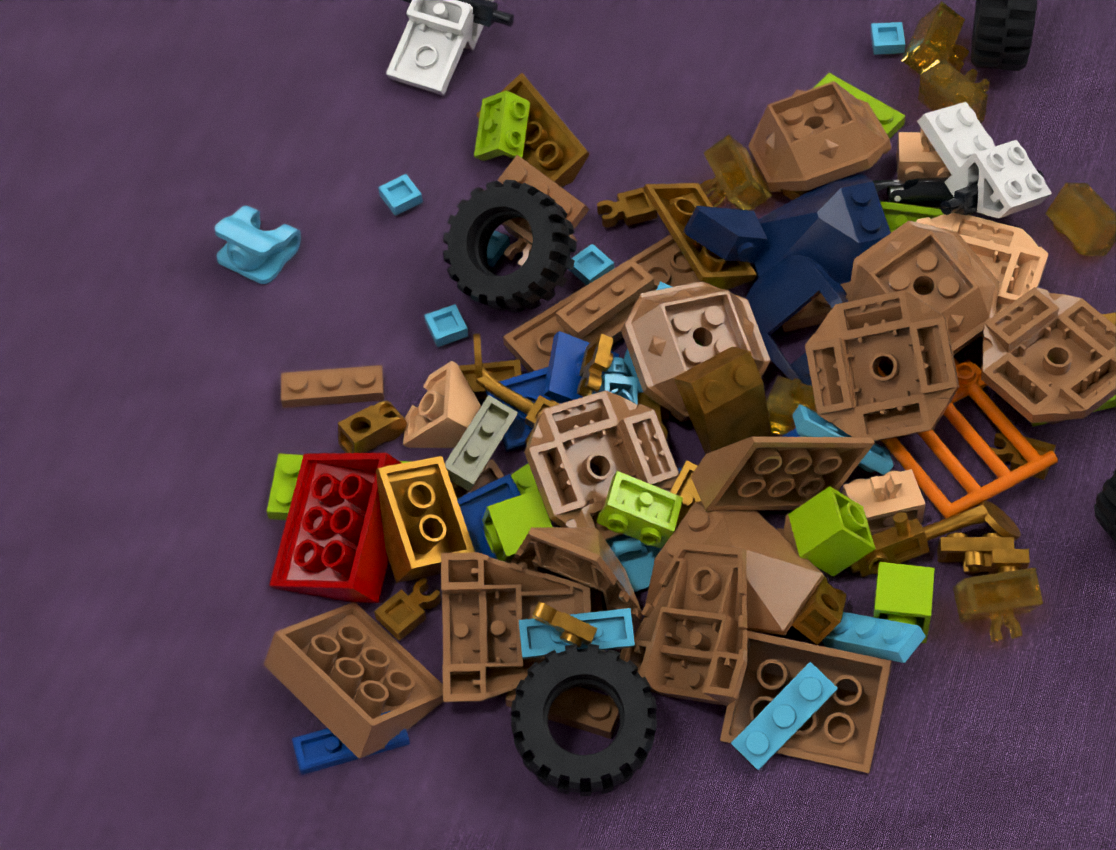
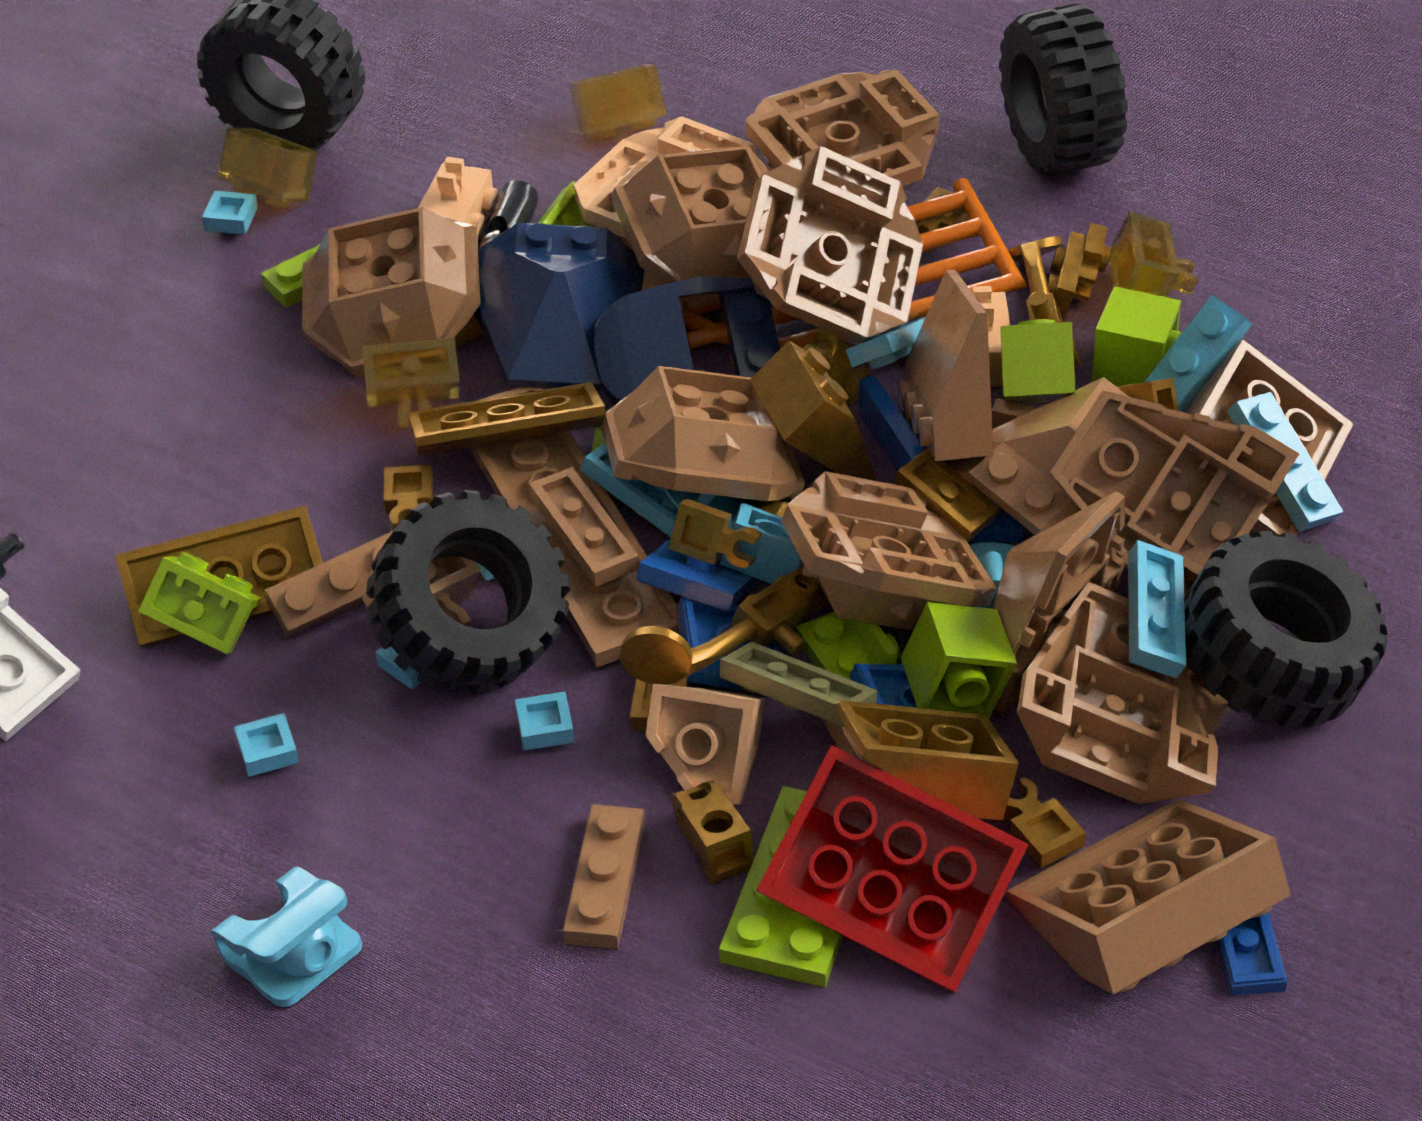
camera: 80 degrees left, 10 degrees down
(572, 629) = (1172, 589): pearl gold plate -> none
(640, 510) = (970, 519): lime bracket -> none
(727, 232) = (535, 375): dark blue slope -> none
(946, 86) = (366, 170): clear yellow brick -> none
(982, 175) = (532, 144): white piece -> none

